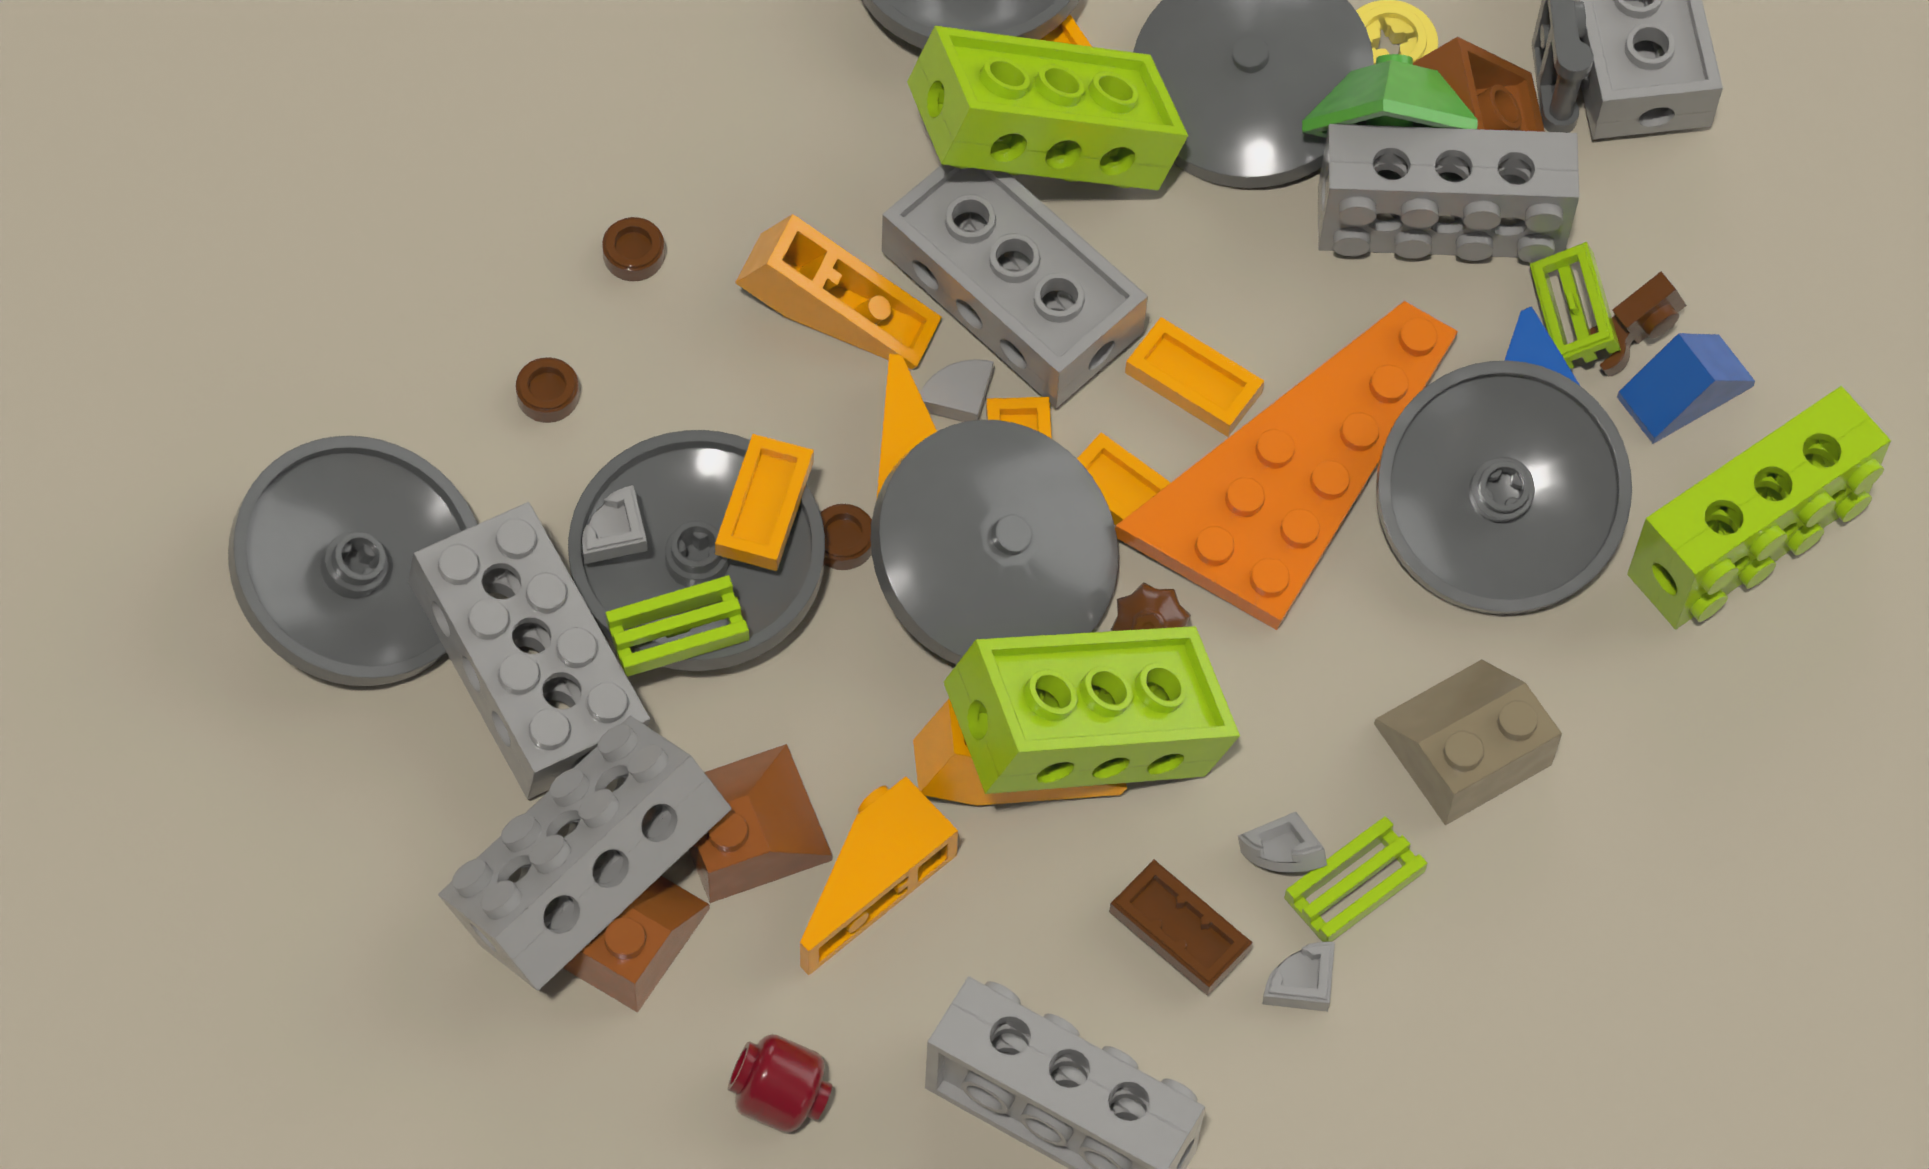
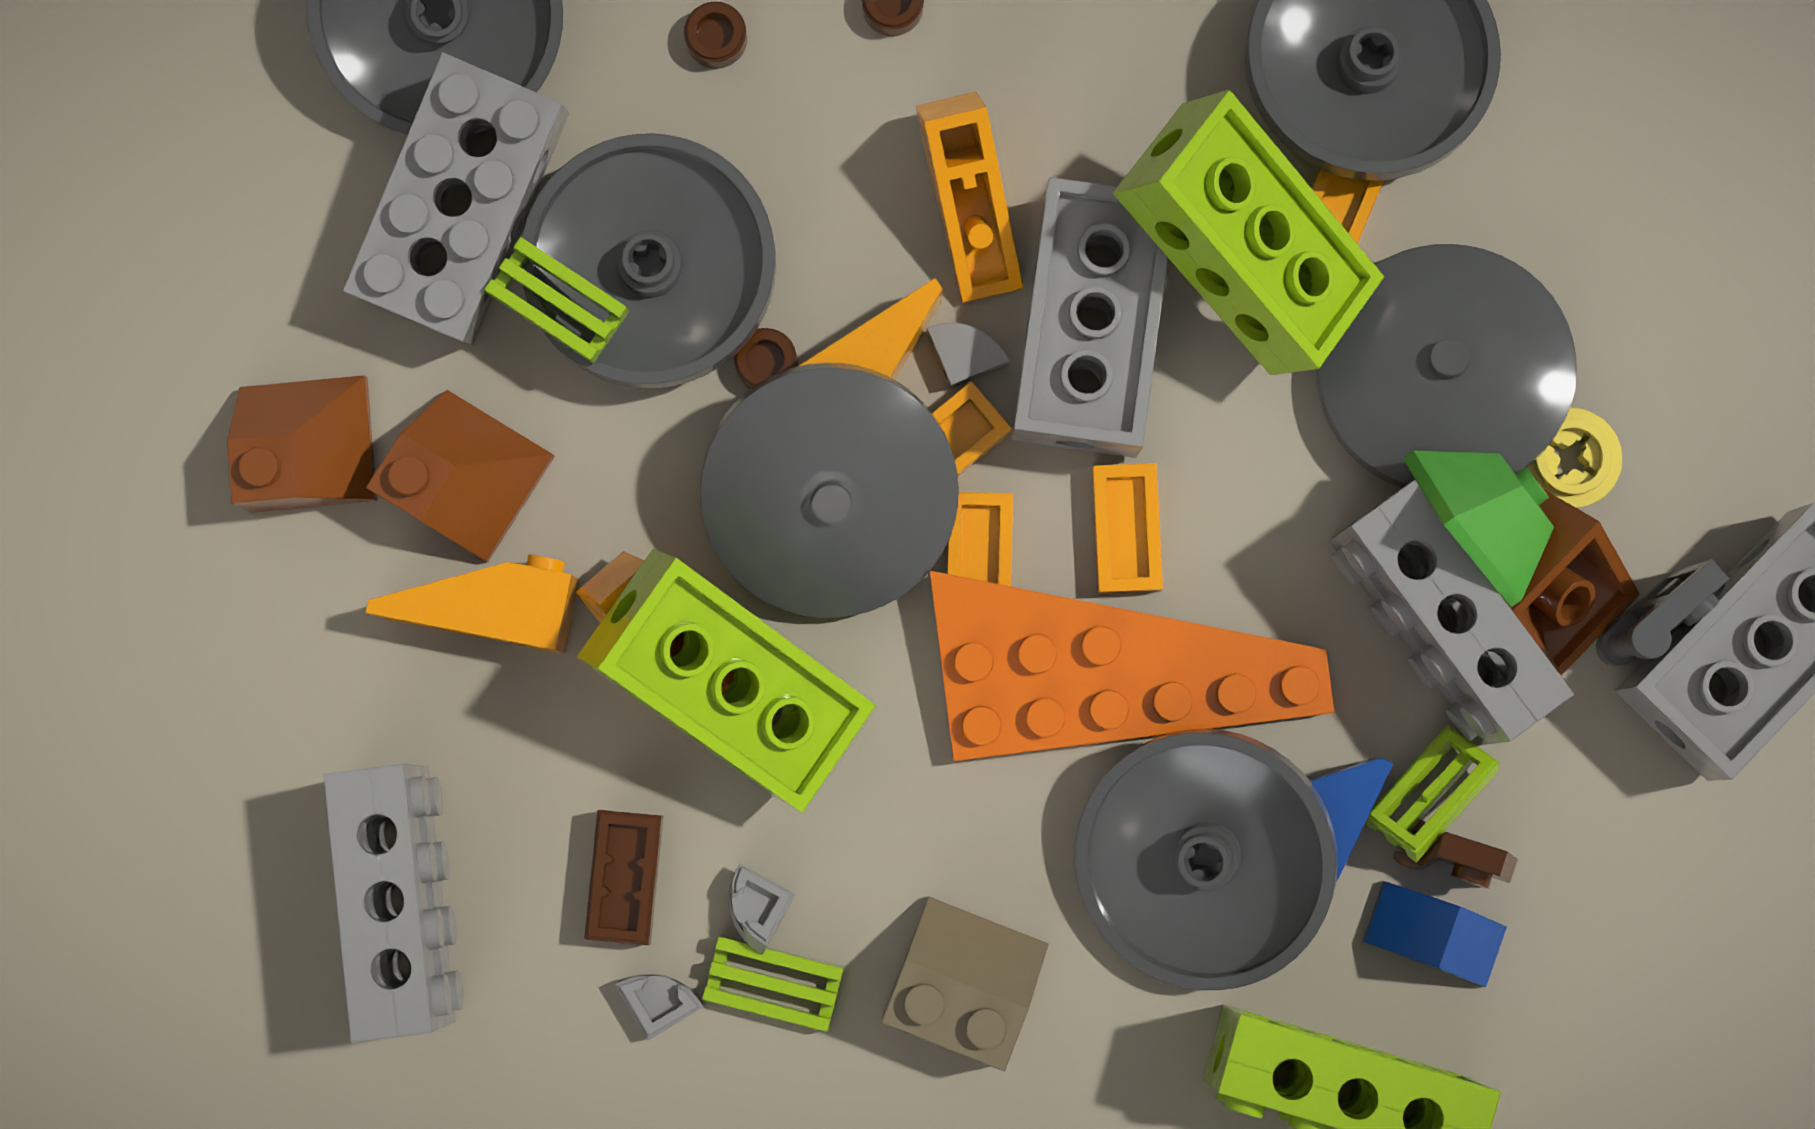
camera: 55 degrees right, 20 degrees up
(604, 862) = (306, 380): light grey brick -> none
(614, 528) = (606, 185): light grey tile -> none
(764, 502) = (719, 283): light orange tile -> none
(779, 1083) = (255, 669): dark red head -> none
(1150, 610) = (870, 659): reddish brown piece -> none

